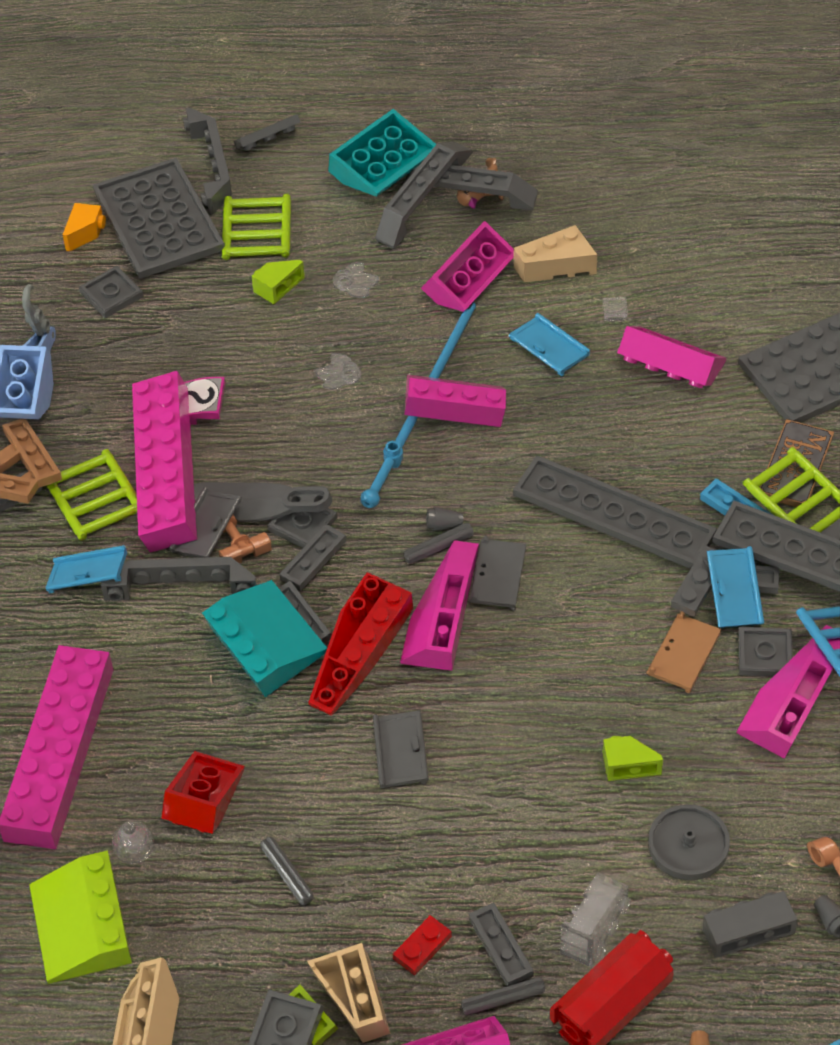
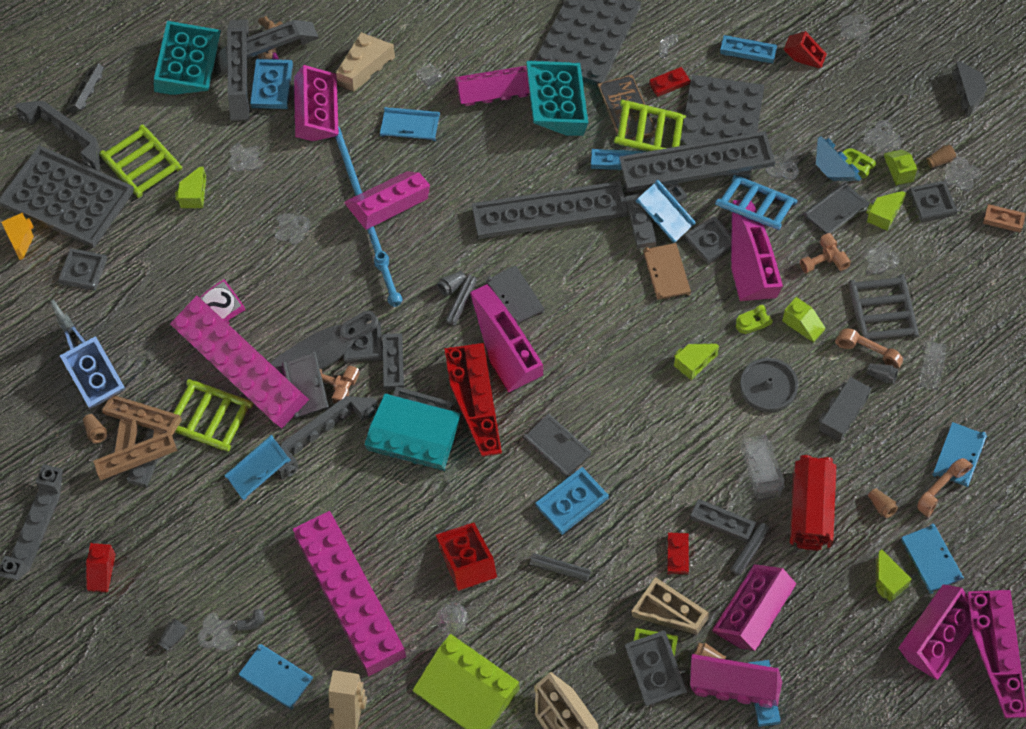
camera: 40 degrees left, 10 degrees up
(360, 812) = (572, 500): none -> dark azure plate
(446, 227) = (271, 84): none -> dark azure plate
(721, 401) = (557, 96): none -> teal slope
(724, 761) = (747, 324): none -> lime plate
(790, 798) = (803, 320): none -> lime slope

